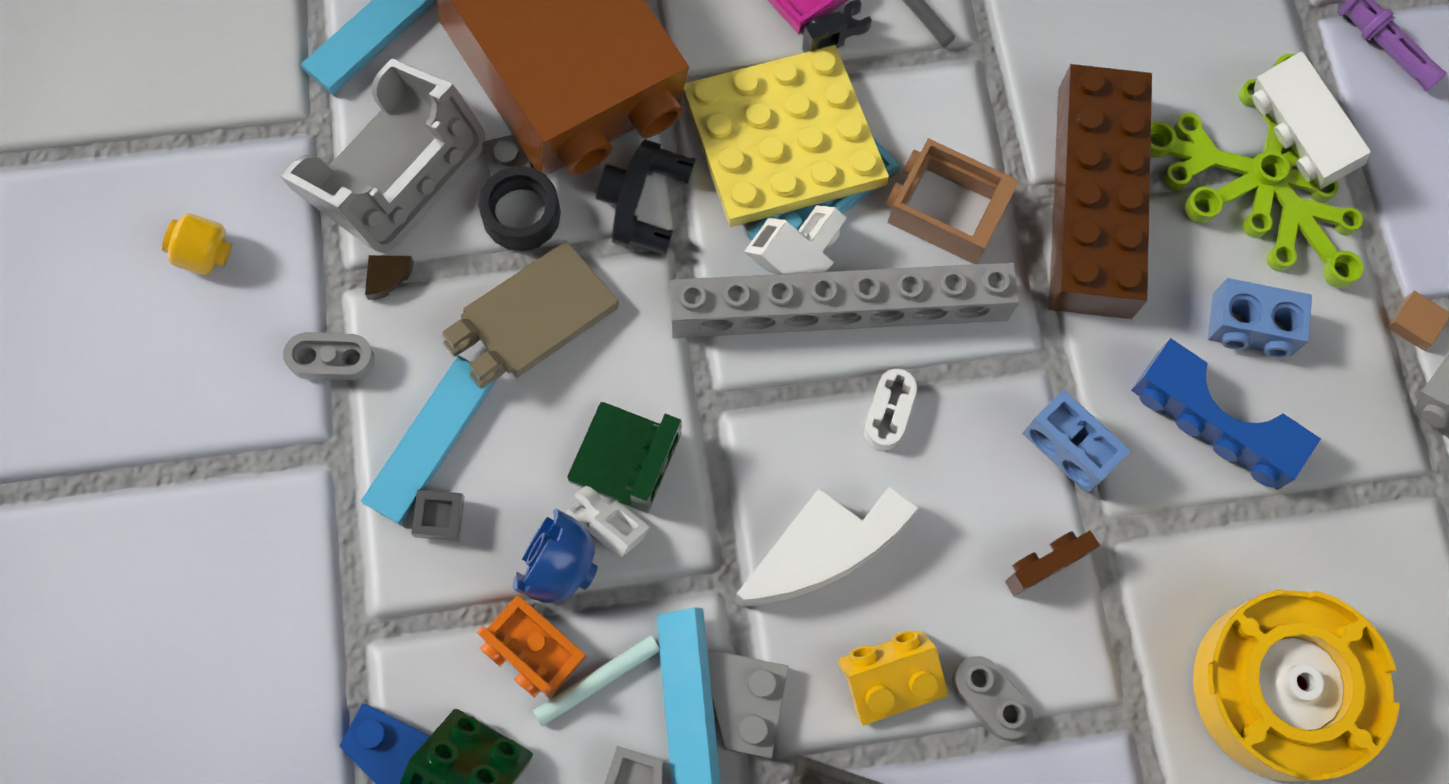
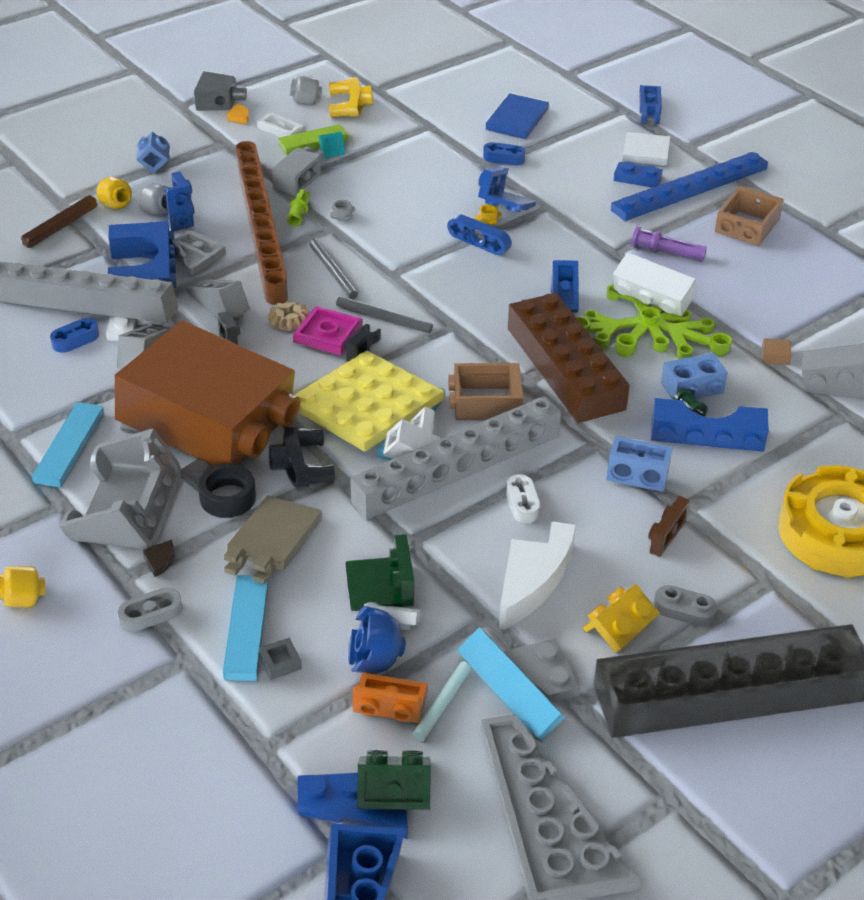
camera: 25 degrees left, 30 degrees down
(1180, 58) = (566, 282): none -> blue slope
(1220, 366) = (695, 406): none -> dark green bush

